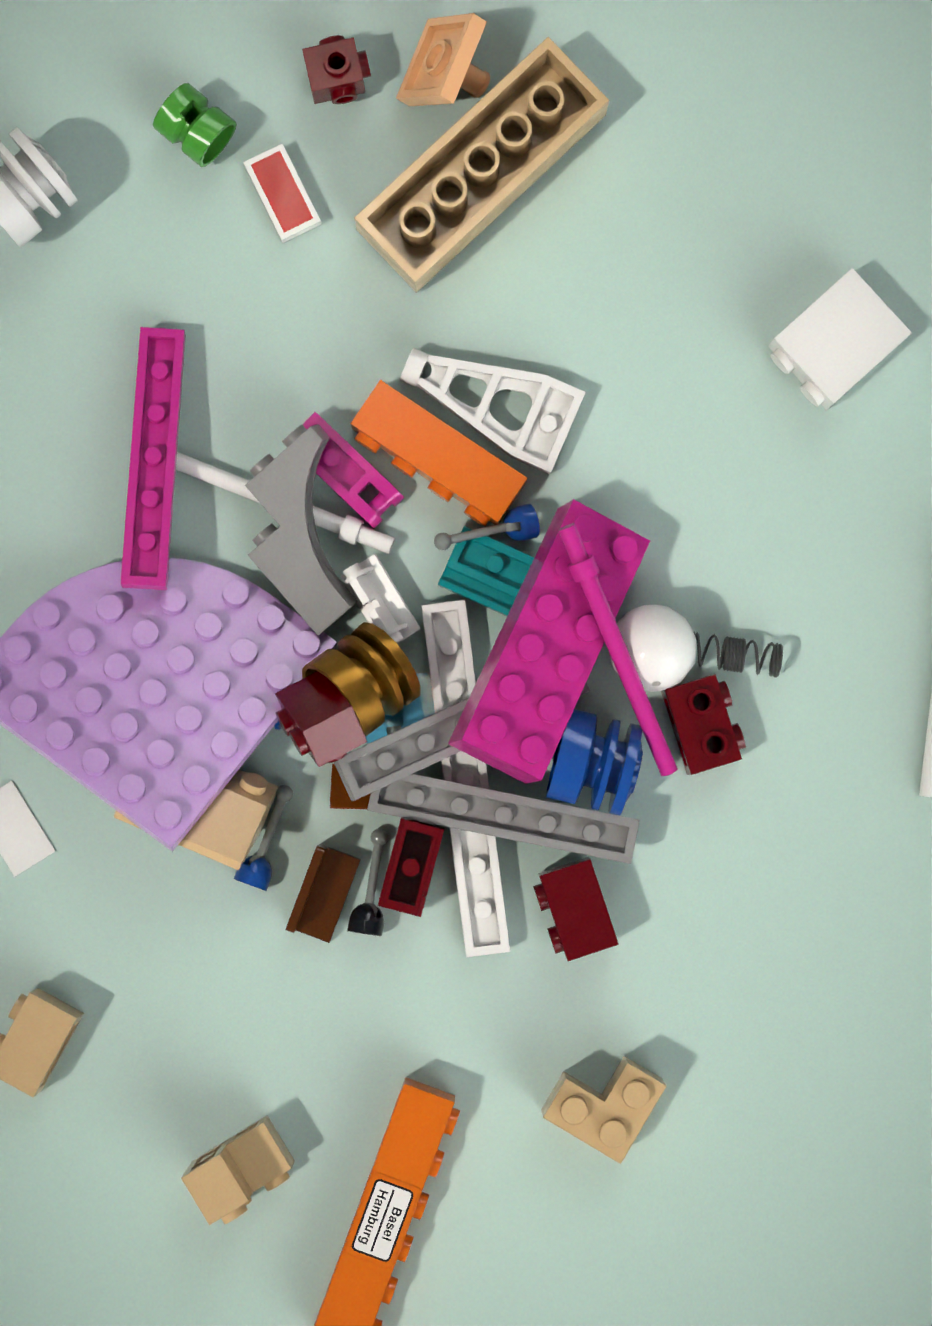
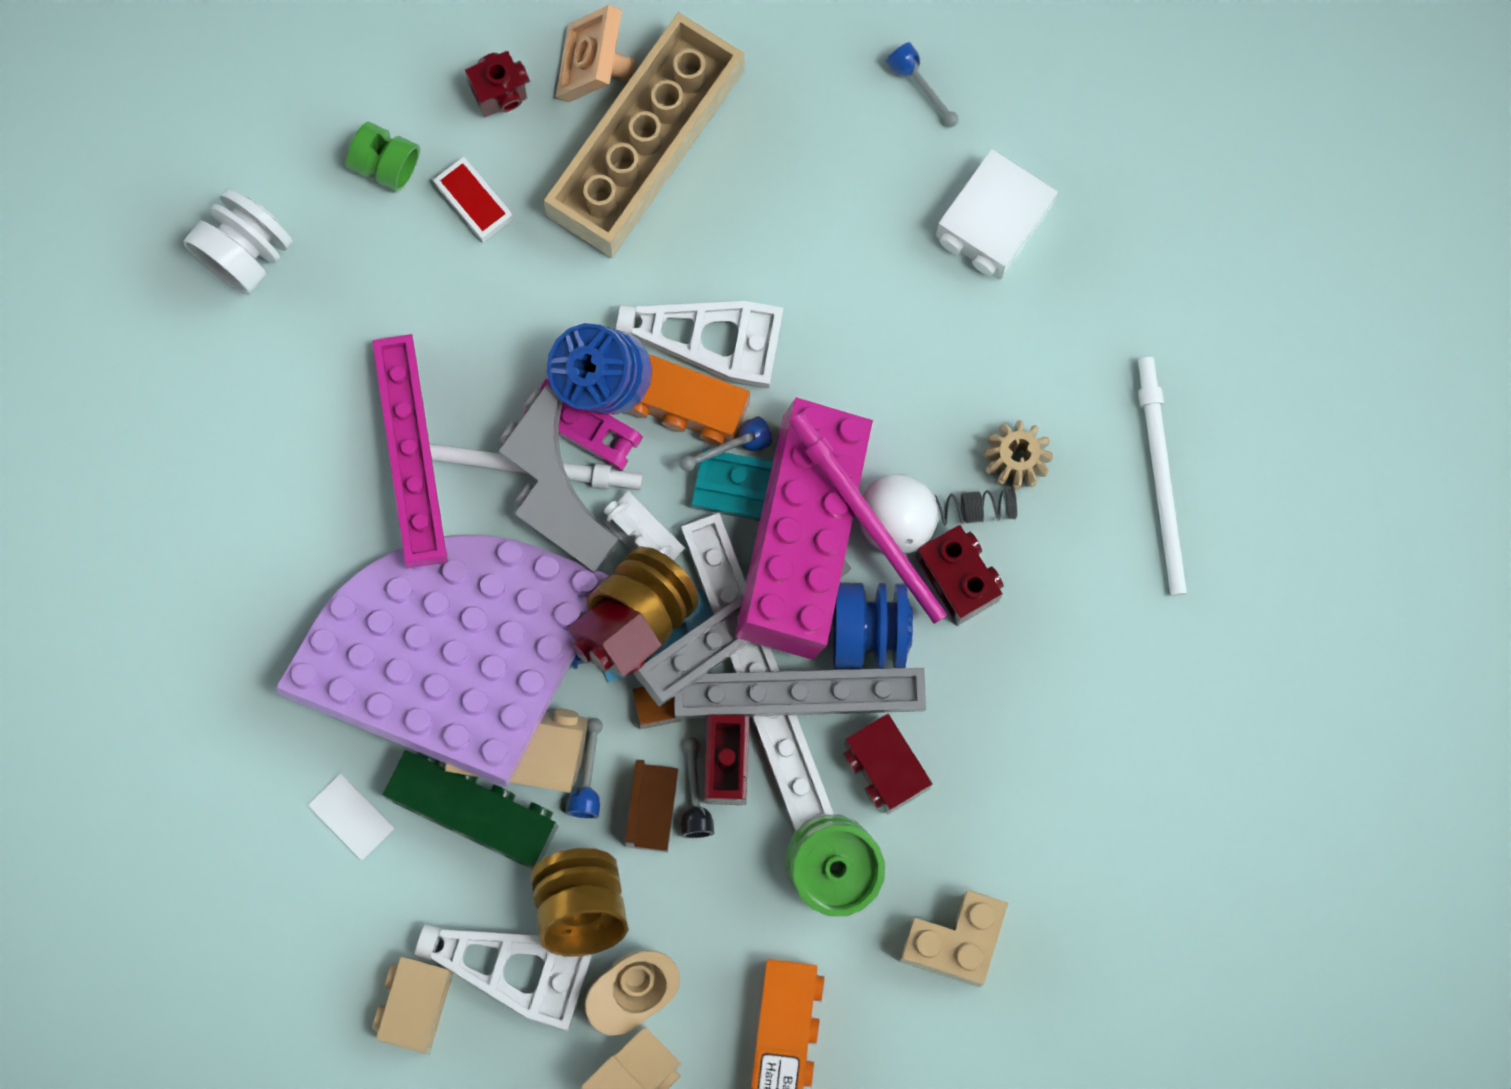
camera: 15 degrees left, 10 degrees down
(136, 859) = (471, 810): none -> dark green brick
(188, 1053) = (558, 986): none -> white plate
(223, 982) = (579, 902): none -> pearl gold wheel
(258, 1082) = (631, 991): none -> tan piece
(393, 420) = (620, 373): none -> blue wheel
(497, 1003) = (850, 885): none -> bright green wheel
(784, 146) = (905, 62): none -> hinge
(810, 611) = (1006, 444): none -> tan gear

